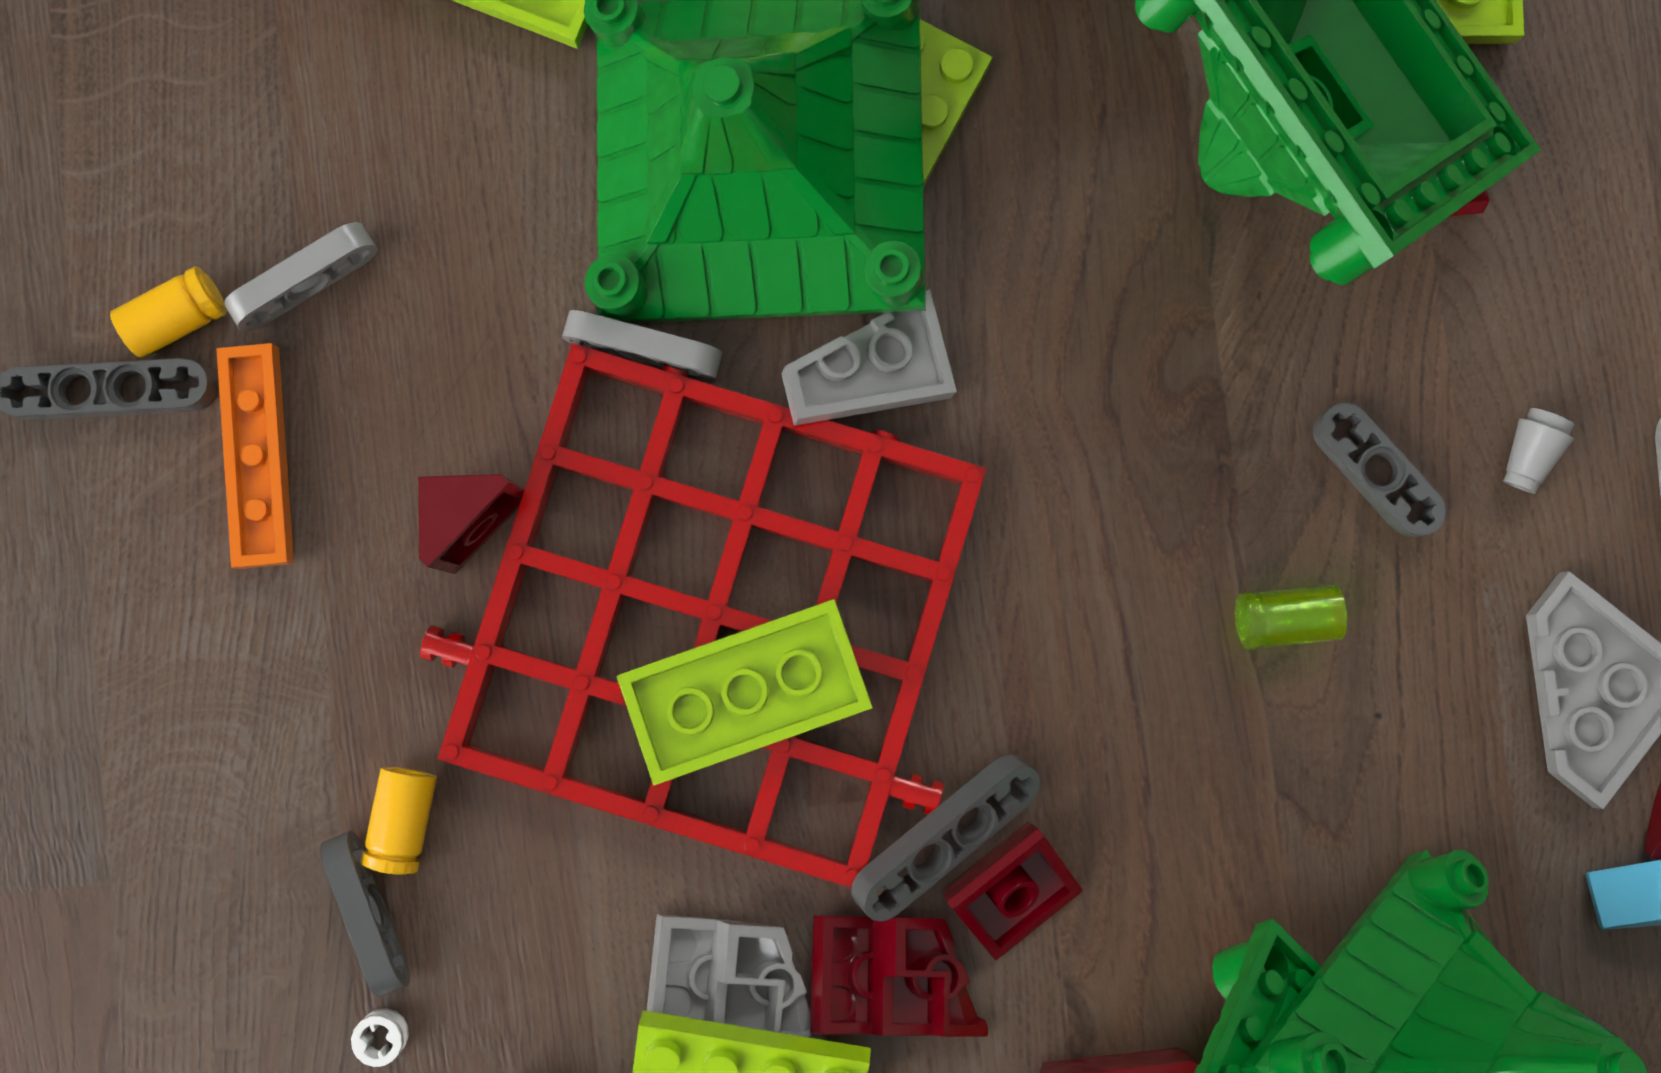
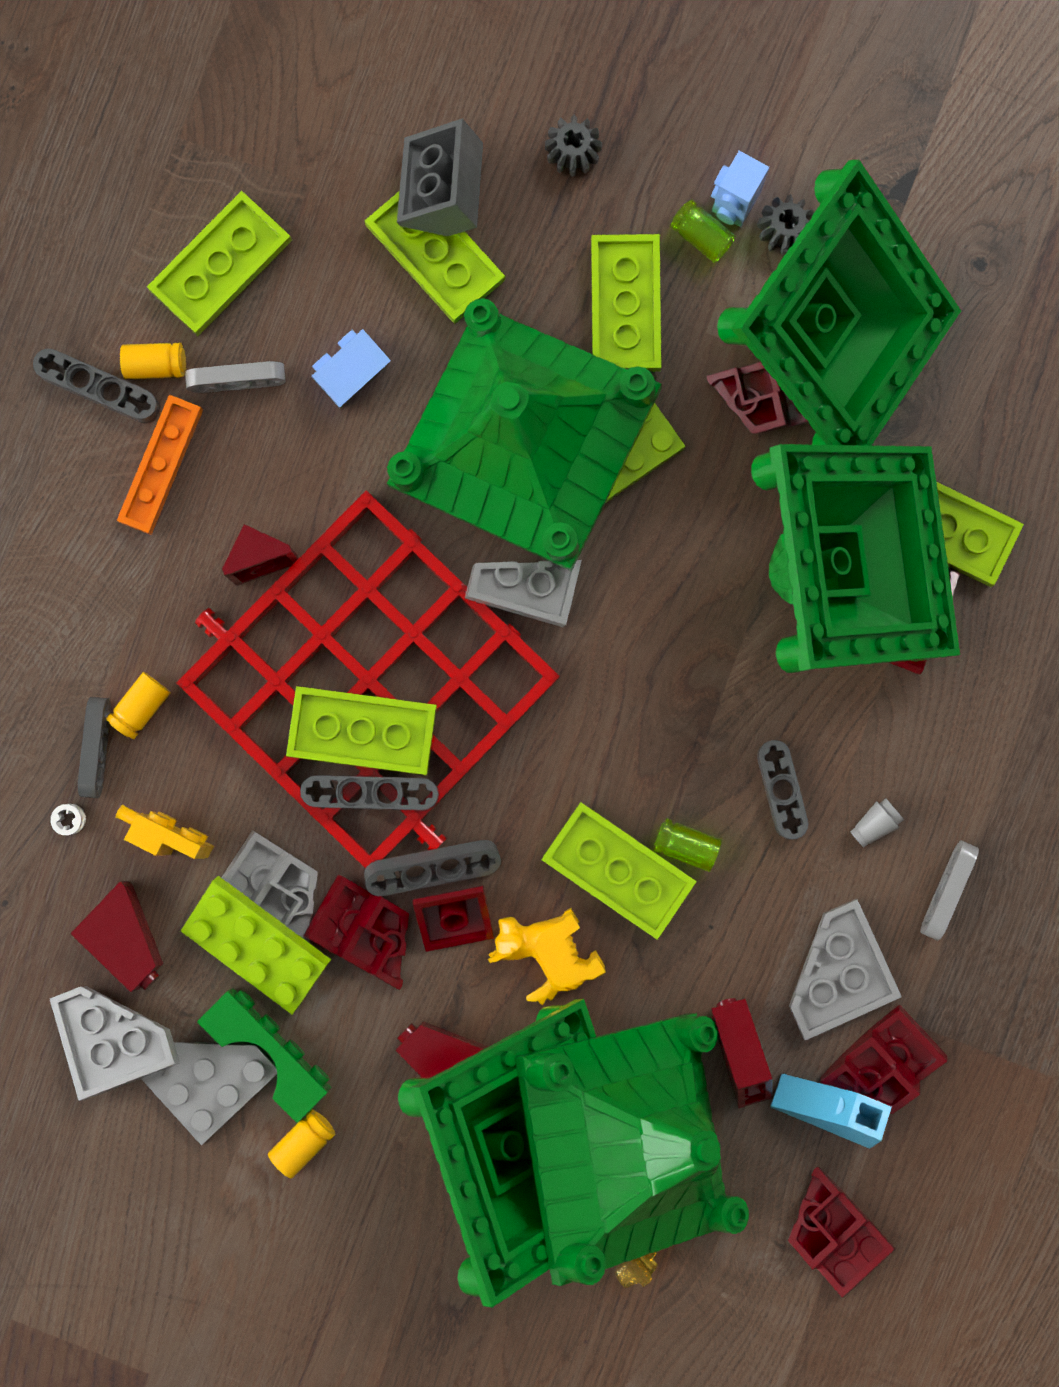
camera: 30 degrees right, 0 degrees up
(196, 126) = (219, 263): none -> lime plate
(459, 178) = (350, 367): none -> light blue brick
(526, 994) = (160, 836): none -> yellow plate
(642, 344) = (404, 510): light grey beam -> none
(805, 782) = (369, 792): none -> dark grey beam
(1176, 862) = (553, 949): none -> yellow animal
(1212, 703) = (619, 870): none -> lime plate
(1526, 872) = (742, 1052): none -> dark red slope

